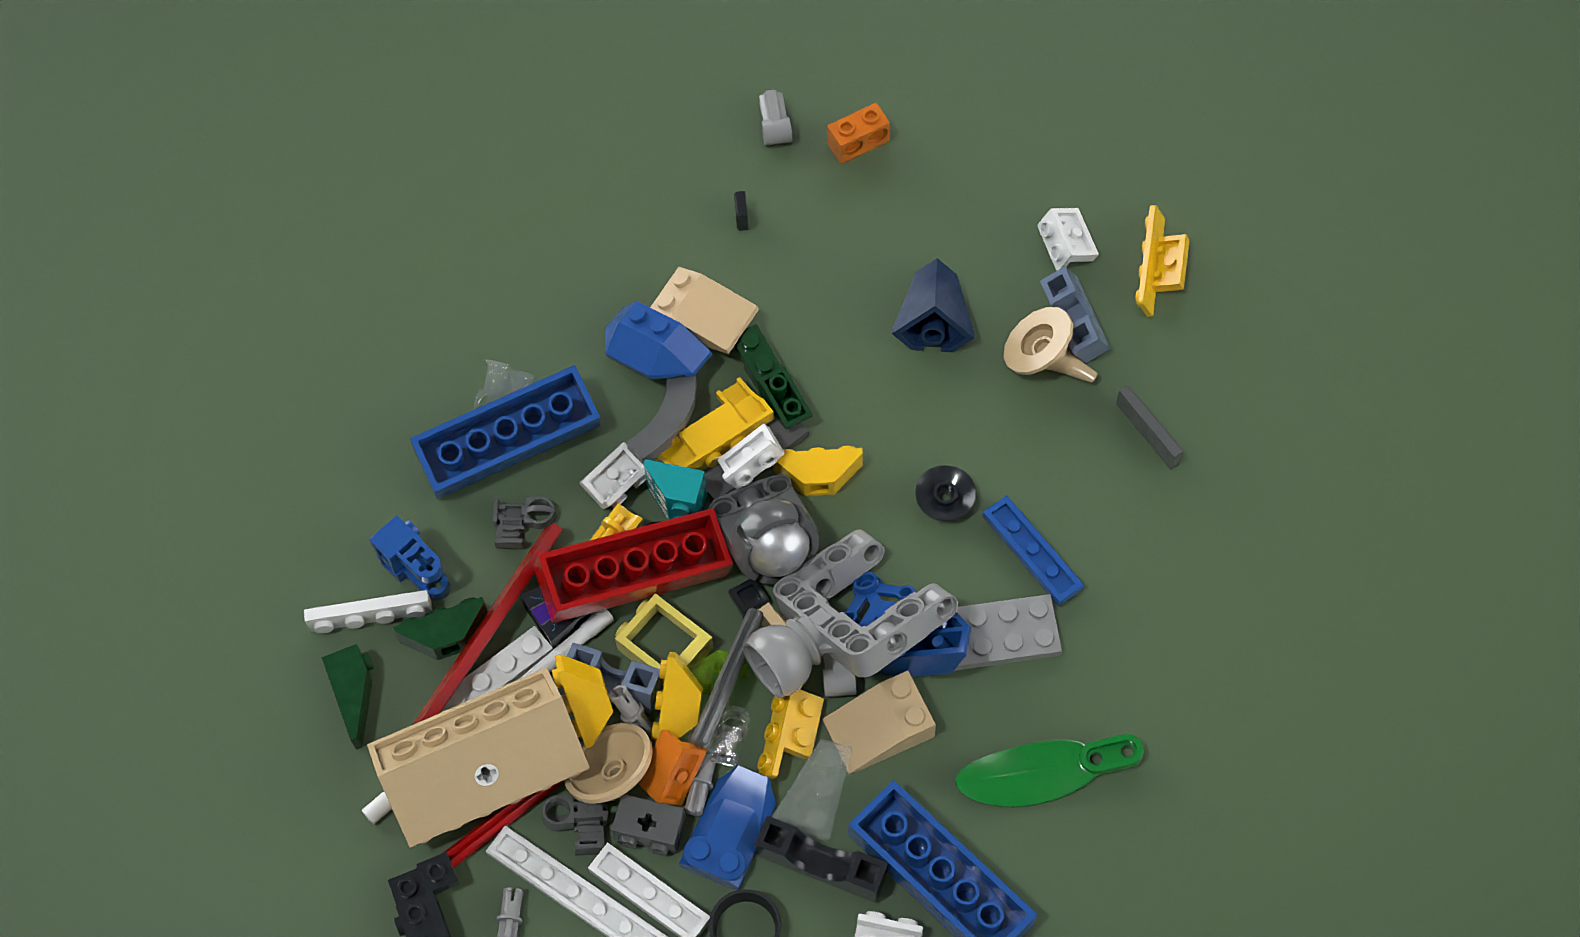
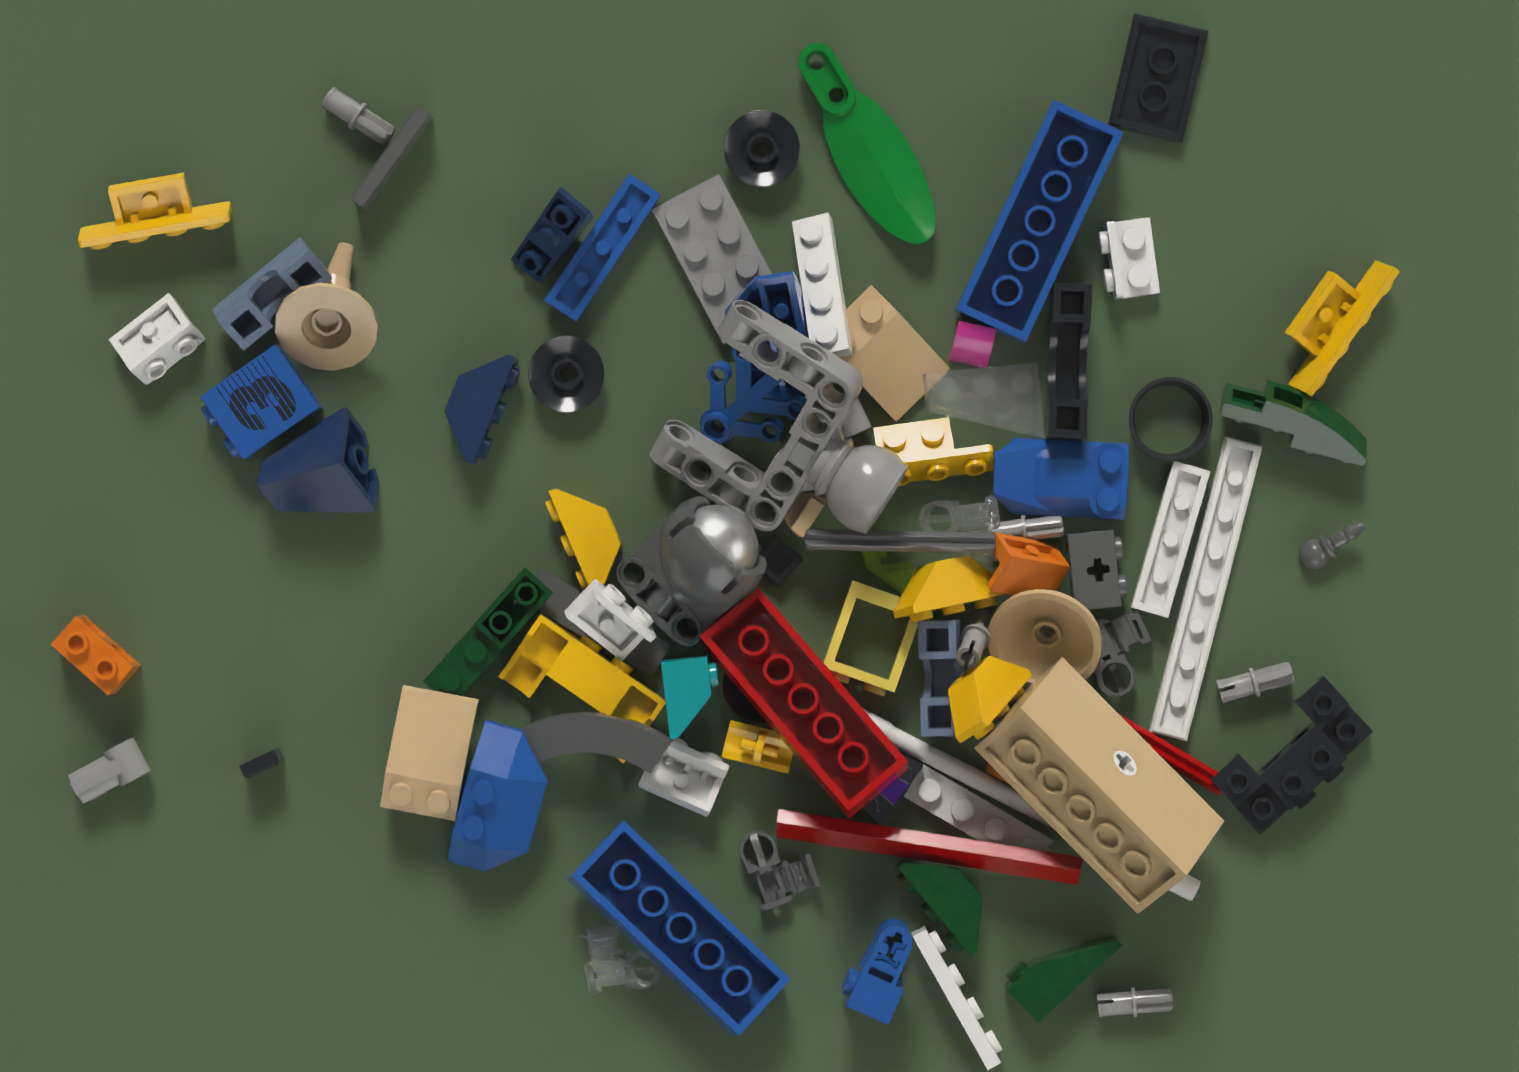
camera: 115 degrees left, 25 degrees up
(304, 741) = (1134, 1002): none -> light grey axle
(861, 791) = (972, 344): none -> dark pink brick
(943, 425) = (478, 404): none -> dark blue slope
(947, 689) = (822, 284): none -> white plate
(998, 287) = (259, 402): none -> blue panel
(1055, 516) = (552, 235): none -> dark blue slope
(1075, 674) = (758, 128): none -> black dish
(1189, 415) = (358, 116): none -> light grey axle

